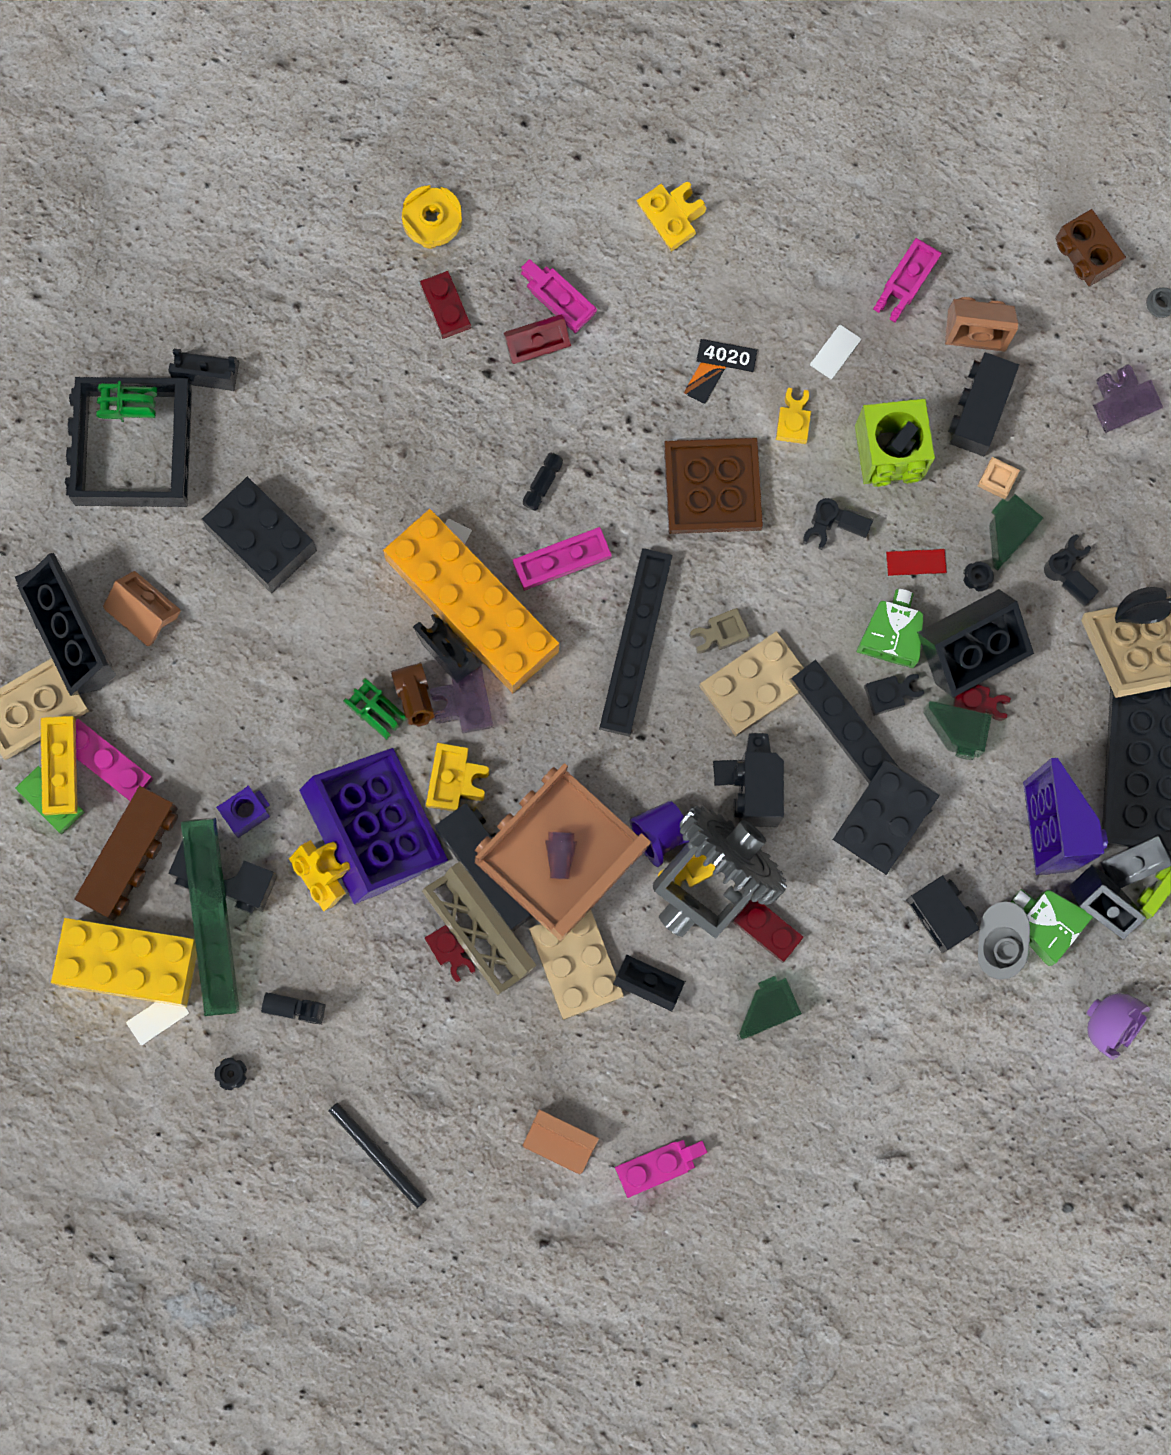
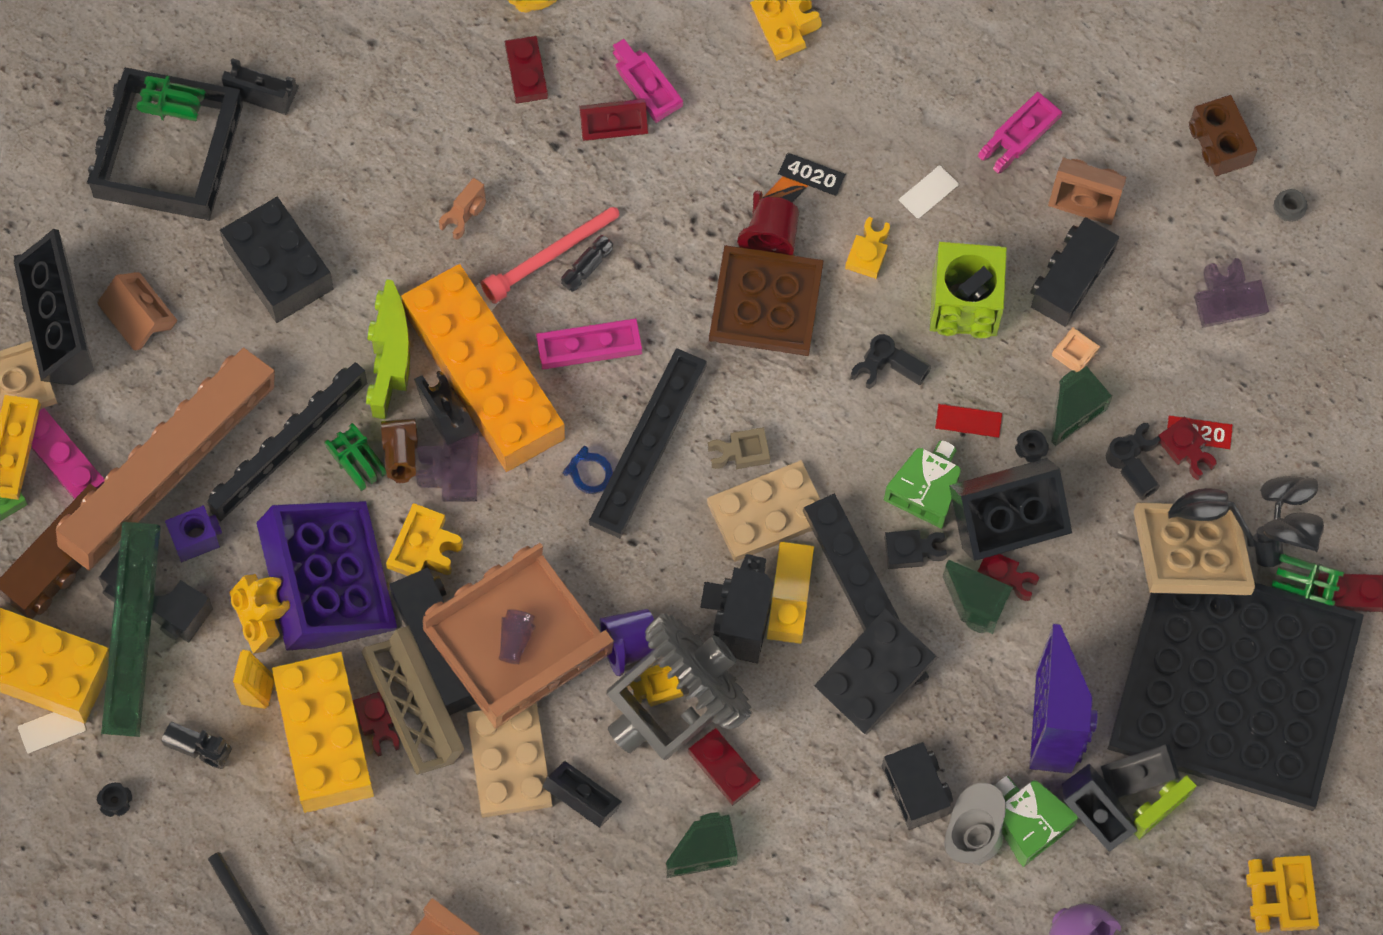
camera: 15 degrees right, 10 degrees down
(202, 749) = (165, 457): none -> nougat brick
(315, 695) = (278, 449): none -> black plate
(332, 941) = (253, 681): none -> yellow slope
(381, 590) = (392, 346): none -> lime slope
(404, 974) = (322, 732): none -> yellow brick
(423, 445) = (468, 203): none -> nougat plate
(466, 520) = (497, 286): none -> coral piece
(571, 680) = (584, 455): none -> clear blue piece
(703, 414) = (771, 226): none -> dark red hat
(794, 749) = (790, 592): none -> yellow slope
(1112, 546) = (1185, 443): none -> dark red plate
(1122, 532) = (1214, 433): none -> red sticker

